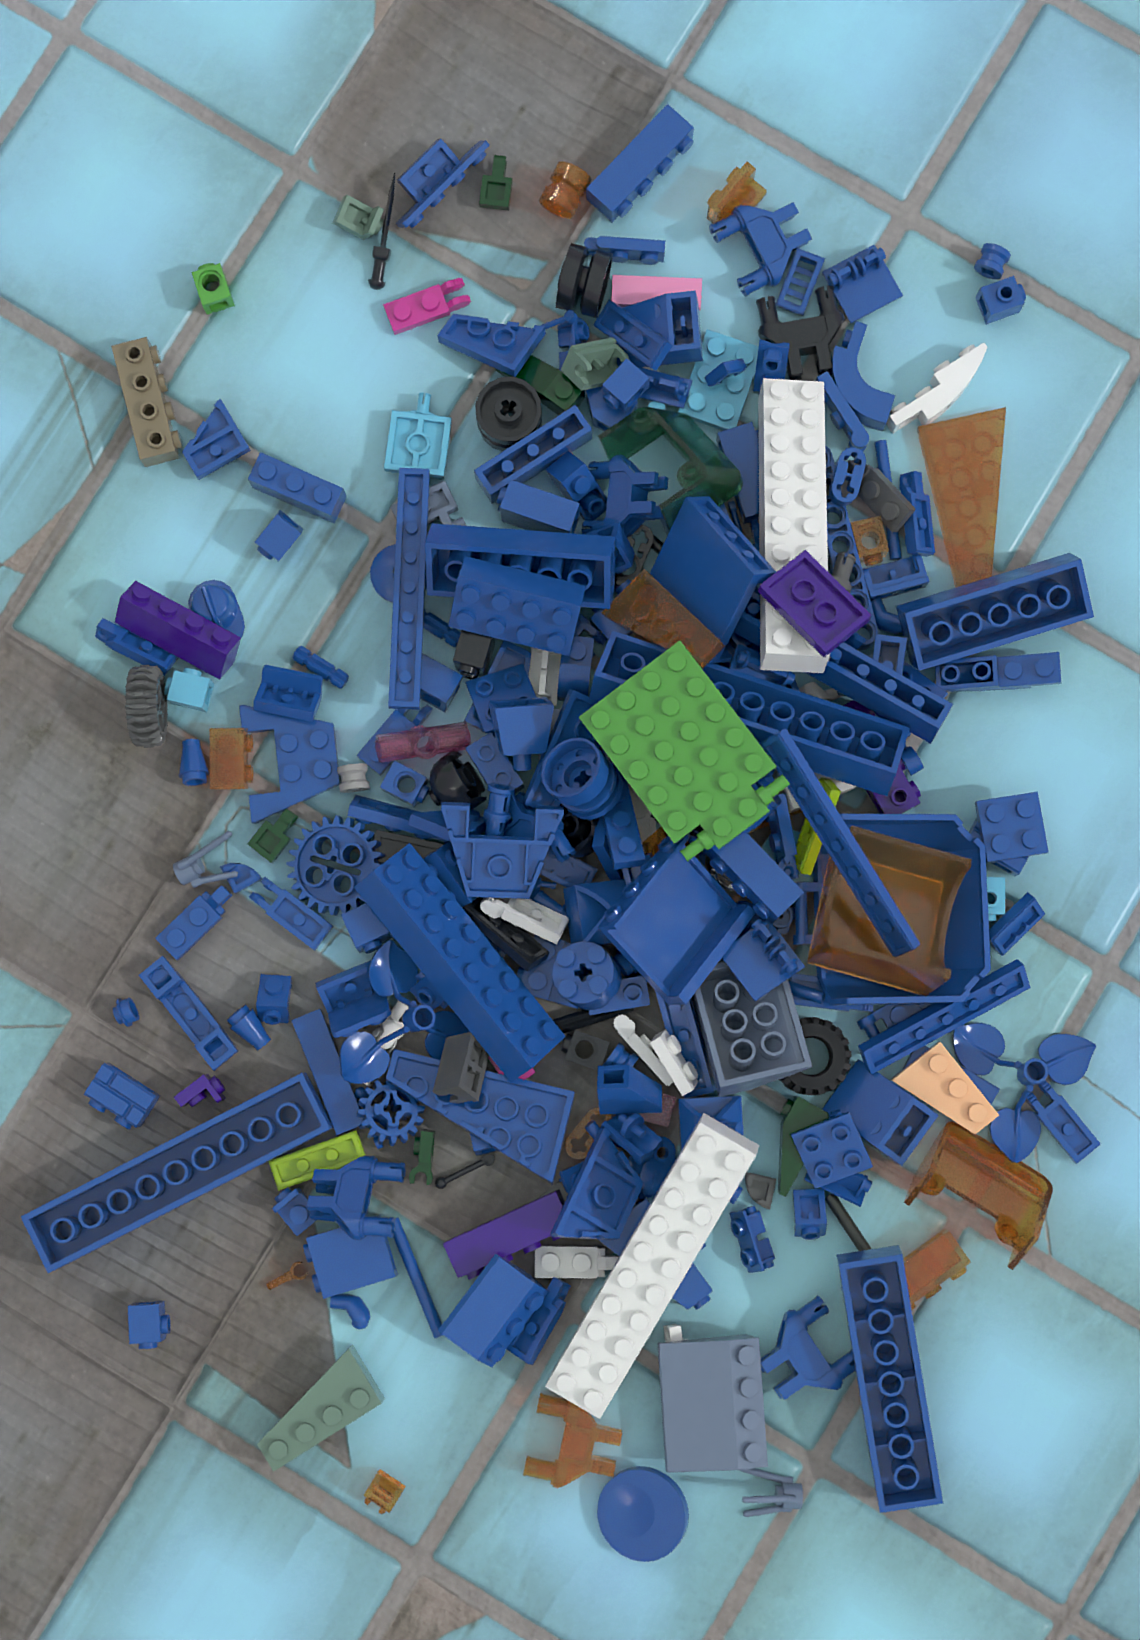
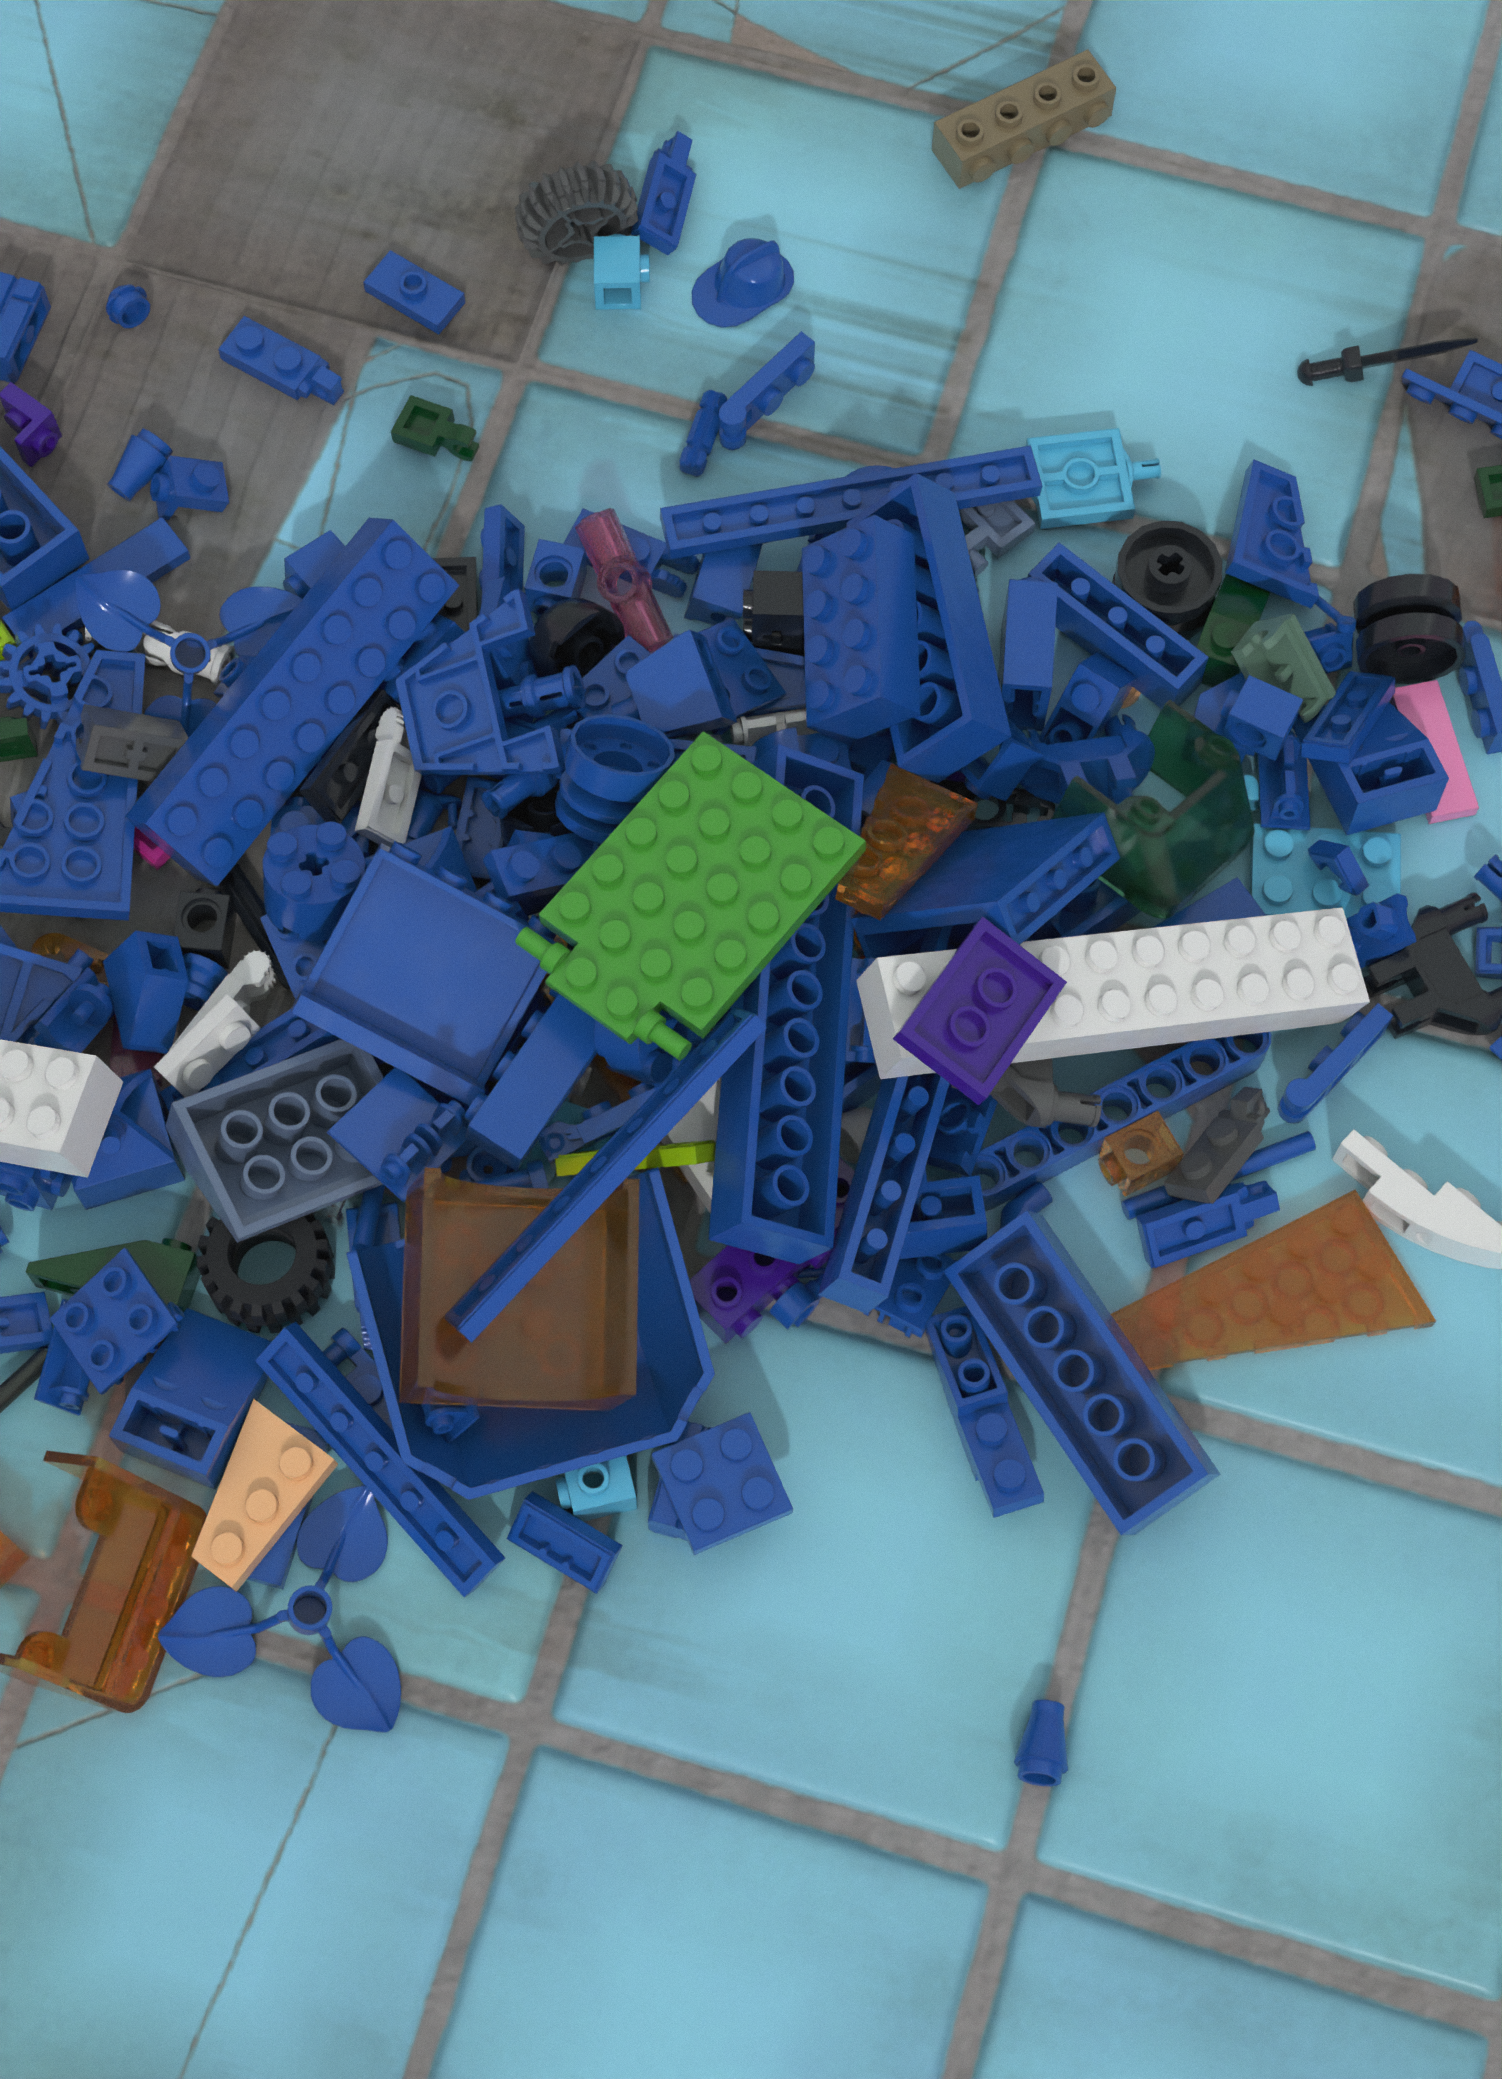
camera: 70 degrees right, 15 degrees down
(164, 824) = (414, 292): none -> blue plate
(177, 629) = (701, 231): dark purple brick -> none
(189, 1012) = (148, 385): blue slope -> none
(191, 867) = (357, 334): sand blue plant -> none
(193, 764) = (511, 302): blue cone -> none
(213, 300) = (1219, 161): bright green brick -> none
(215, 443) = (993, 219): blue wing -> none
(230, 758) = (531, 344): clear orange bracket -> none
(246, 876) = (362, 405): blue tile -> none
(278, 536) = (880, 324): blue brick -> none
(289, 693) = (648, 396): blue bracket -> none
(294, 915) = (320, 482): blue hinge -> none
(297, 487) = (960, 334): blue brick -> none
(304, 760) = (560, 445): blue wing -> none
(306, 621) = (766, 390): none -> blue plate
(343, 839) = (443, 511): blue gear -> none
(352, 1001) = (201, 580): blue bracket -> none
(353, 778) = (546, 510): light grey wheel -> none
(358, 218) = (1394, 316): sand green bracket -> none
(425, 306) = (1295, 441): dark pink hinge -> none
(760, 1188) = (37, 1243): dark grey tile -> none
(854, 477) = (1229, 1071): blue beam -> none
(868, 403) = (1392, 1056): blue arch -> none
(896, 577) = (1089, 1211): blue hinge -> none
(1063, 1124) = (244, 1705): blue hinge -> none

